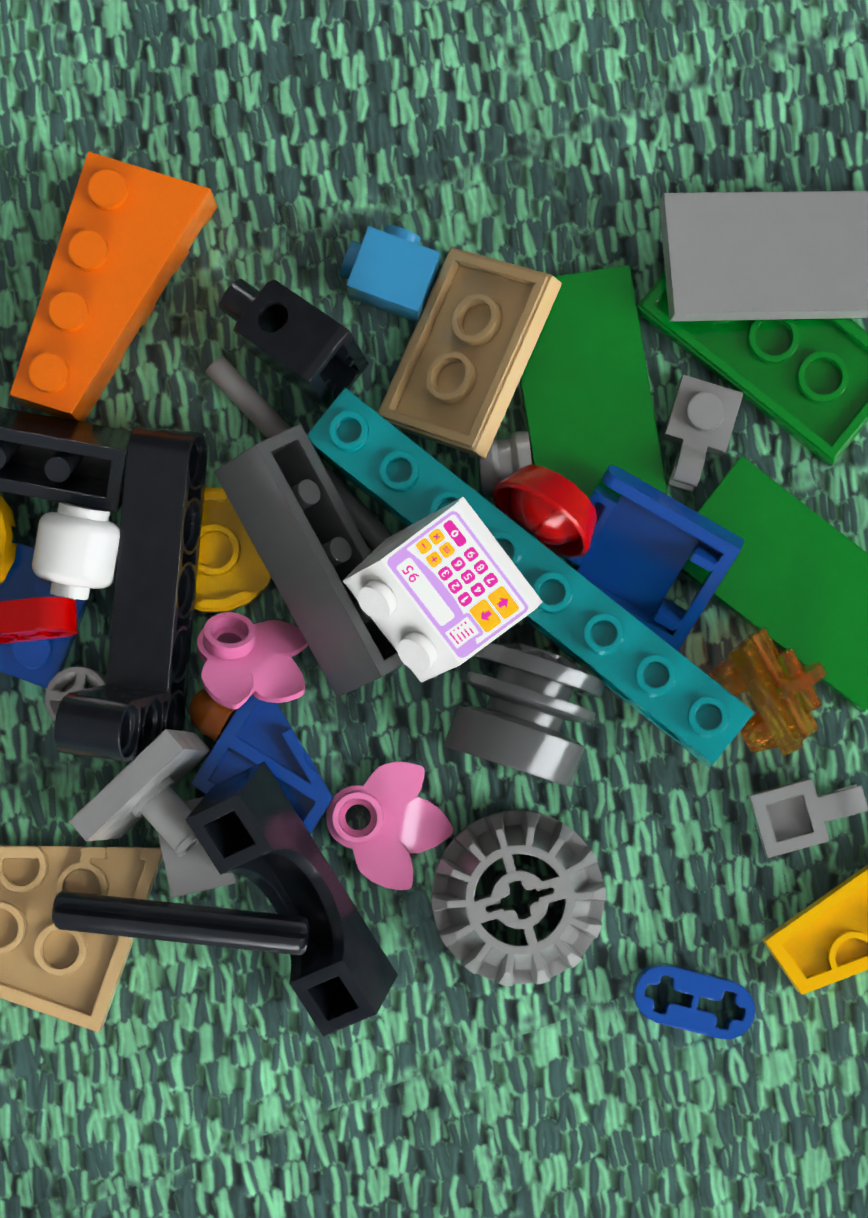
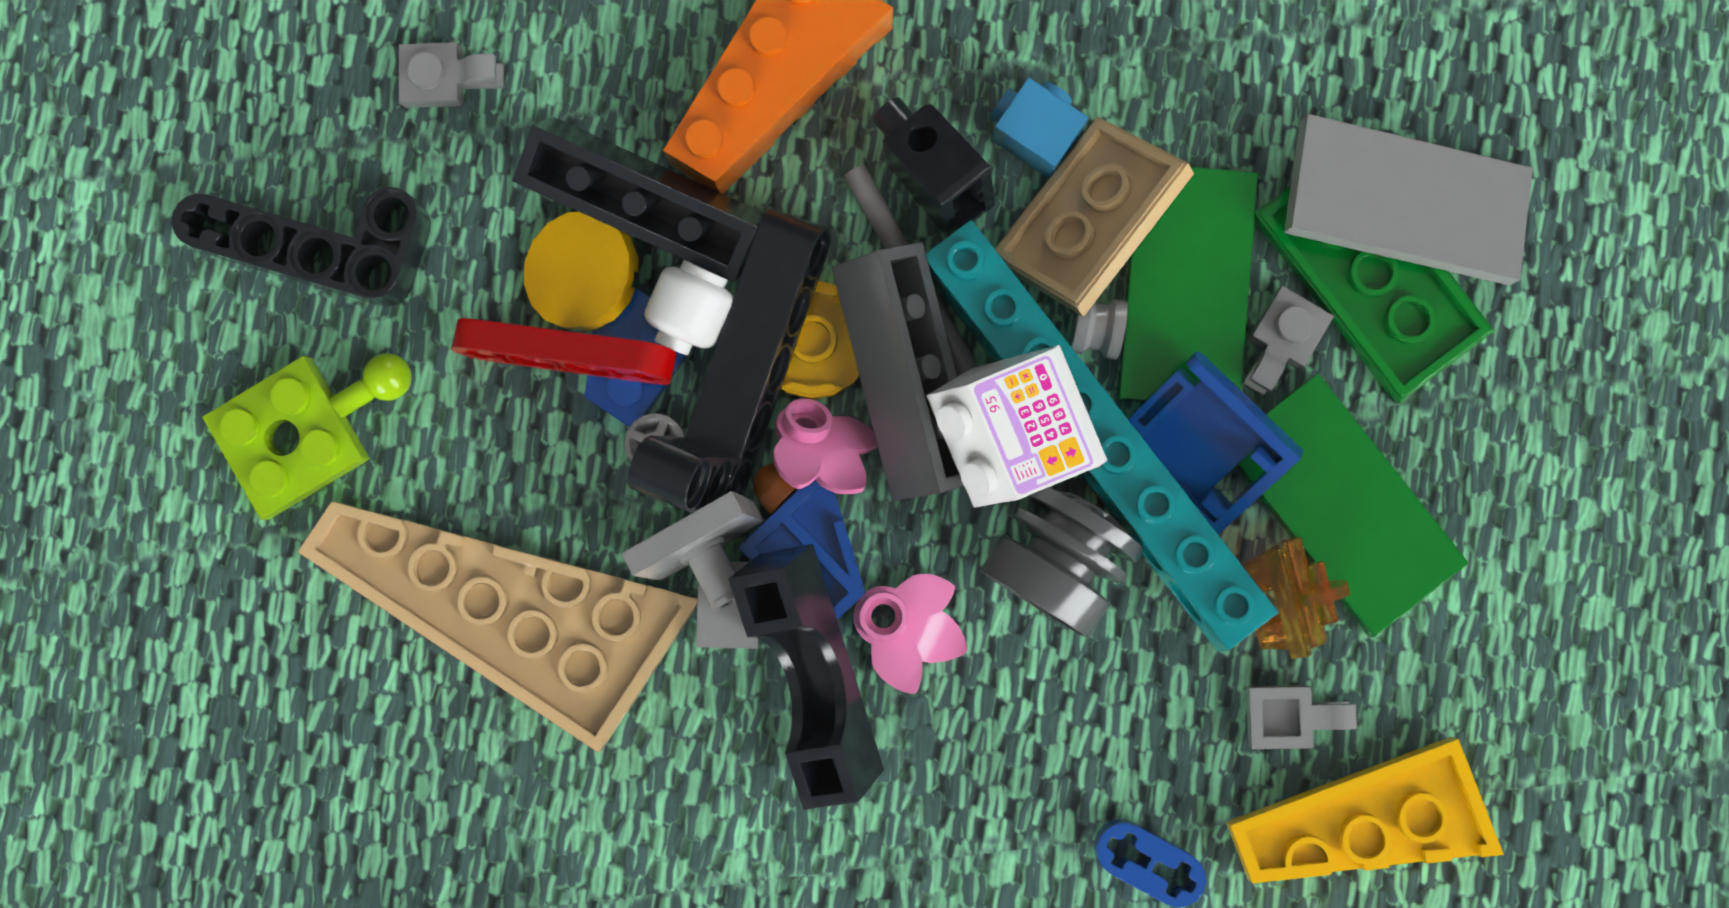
camera: 25 degrees right, 0 degrees up
(181, 923) = (699, 672): black axle -> none
(461, 914) = (957, 729): light grey gear -> none
(548, 509) = (1132, 377): red hat -> none

